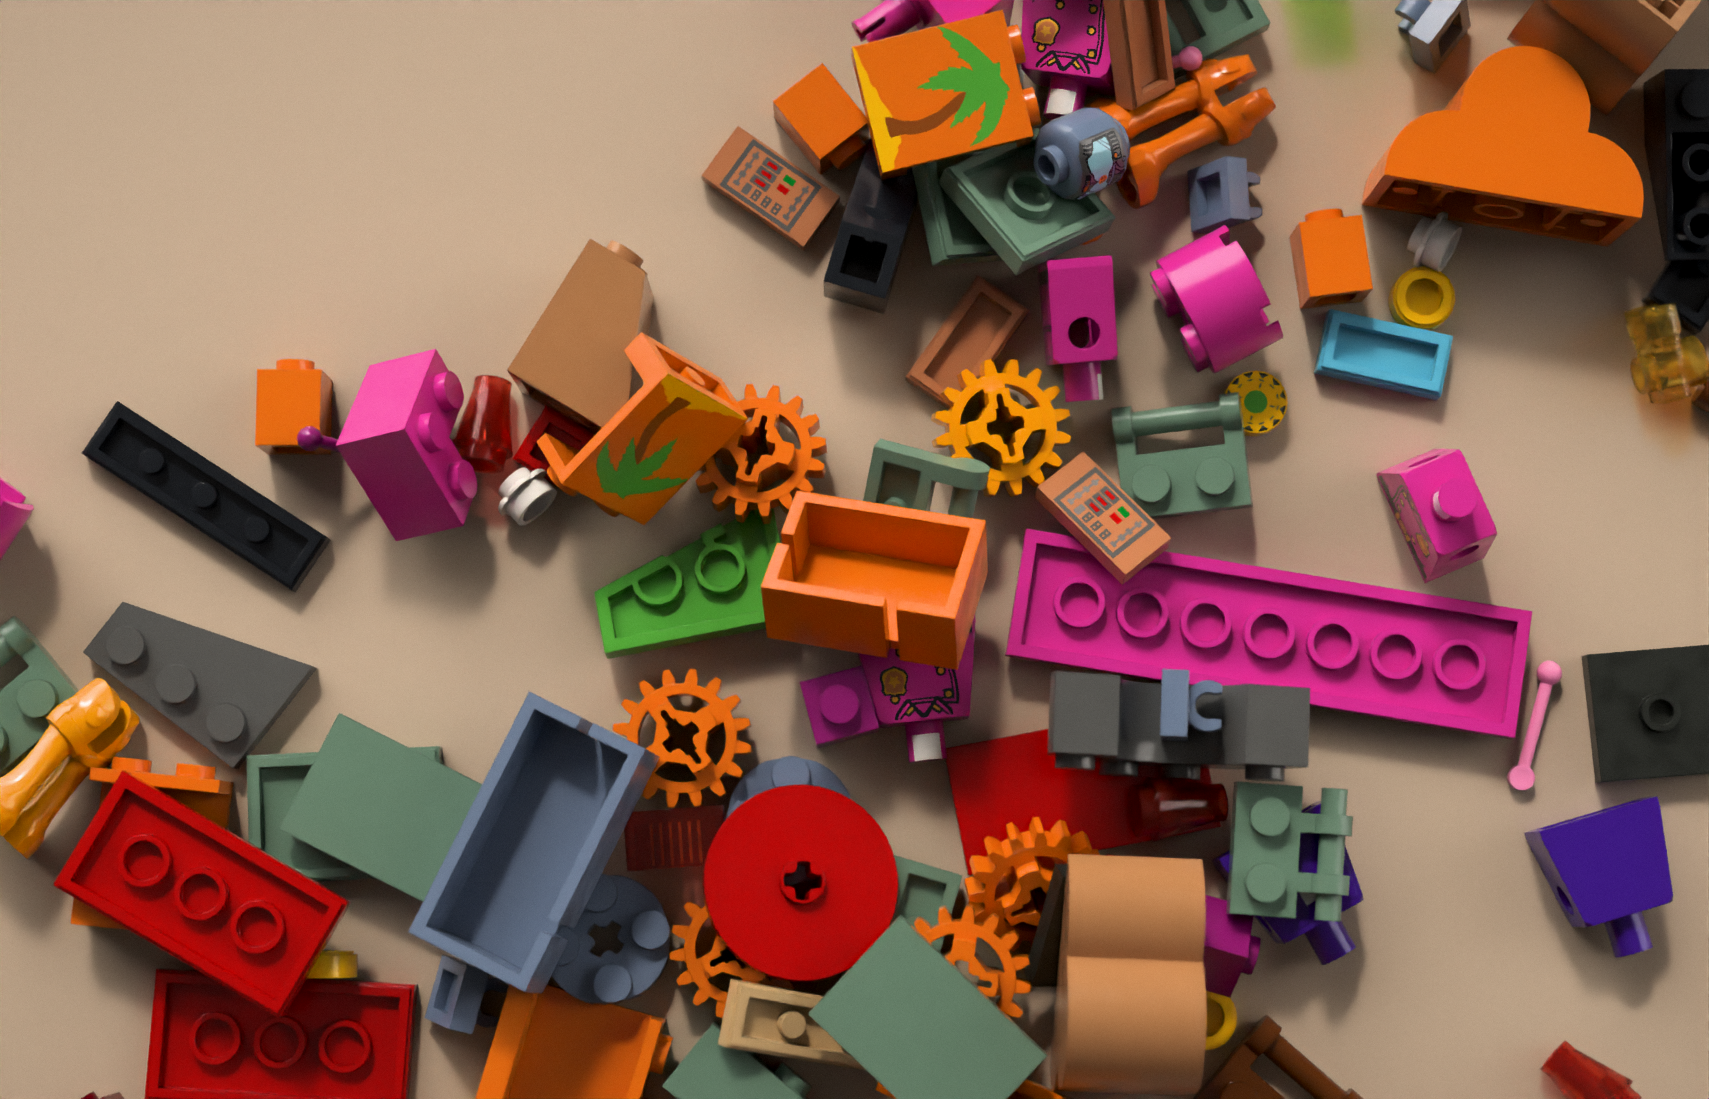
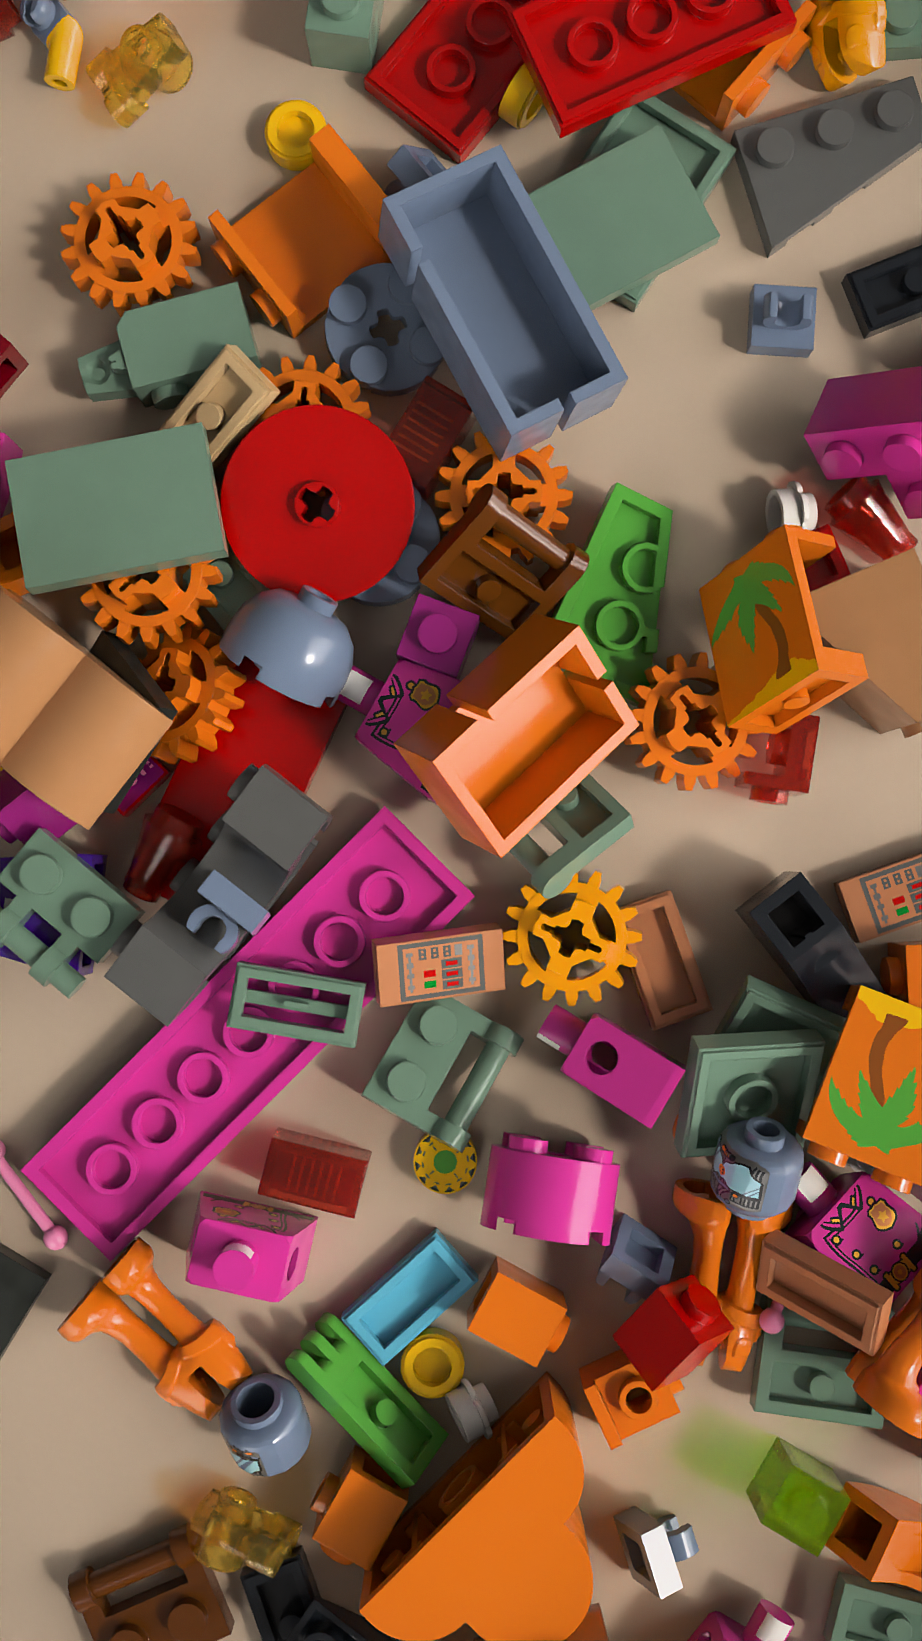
camera: 125 degrees right, 5 degrees up
(366, 617) = (781, 320): none -> sand blue tile
(730, 352) = (793, 759): none -> clear red bracket
(763, 690) = (488, 581): none -> reddish brown plate
(930, 817) = (293, 643): none -> sand blue cylinder
(1195, 619) = (350, 1012): none -> sand green tile
(1255, 129) = (673, 1331): none -> red brick
(1325, 149) = (606, 1388): none -> orange brick
(1340, 499) = (314, 1172): none -> clear red piece
(1488, 330) = (366, 1400): none -> bright green hinge
(1565, 395) = (265, 1425): none -> sand blue head
(1576, 275) = (356, 1510): none -> orange brick
(1577, 501) = (177, 1366): none -> orange piece

